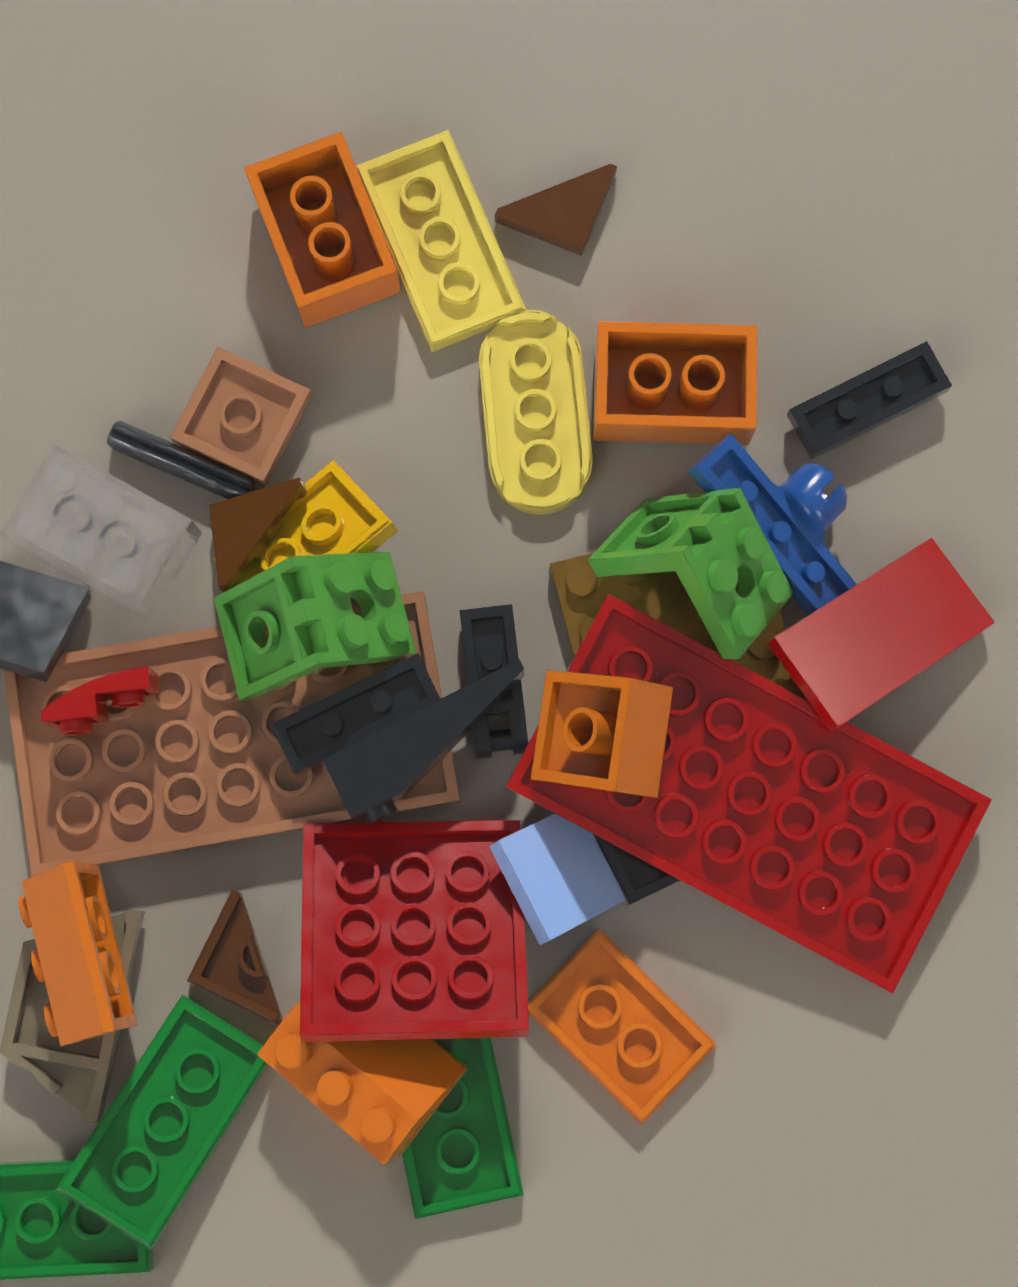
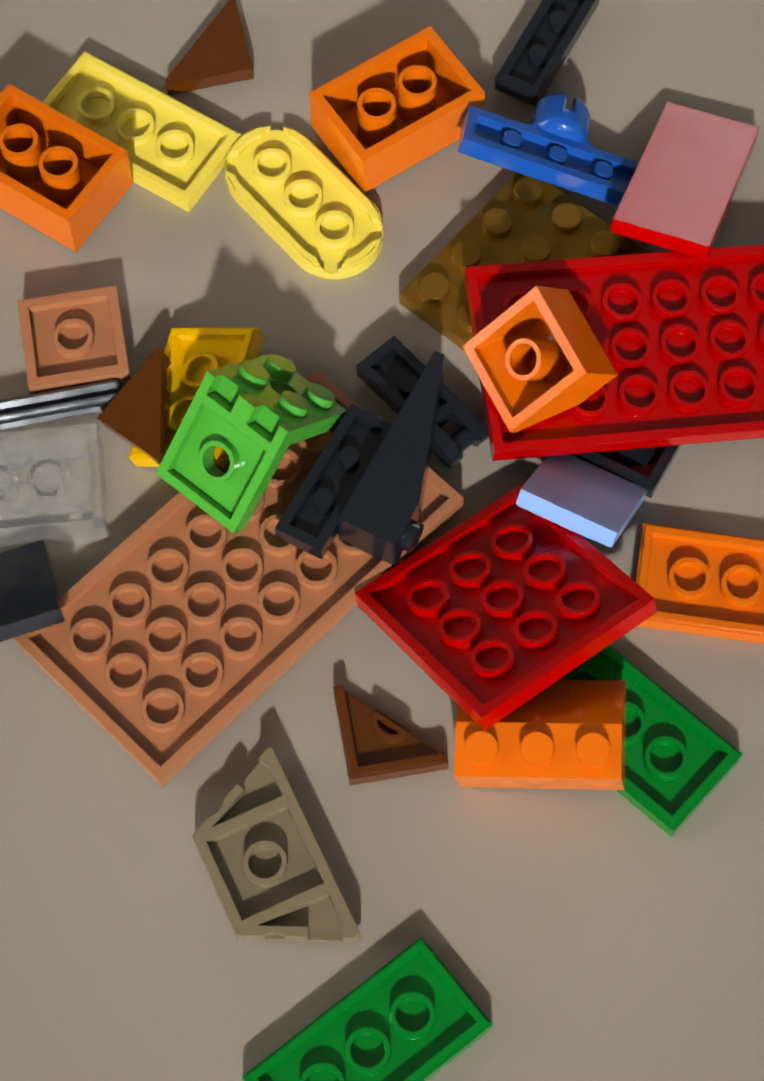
camera: 35 degrees left, 15 degrees down
(76, 953) = (249, 794): orange slope -> none
(87, 704) = (111, 613): red slope -> none
(165, 1122) = (416, 896): green tile -> none
(711, 546) = (527, 181): bright green bracket -> none

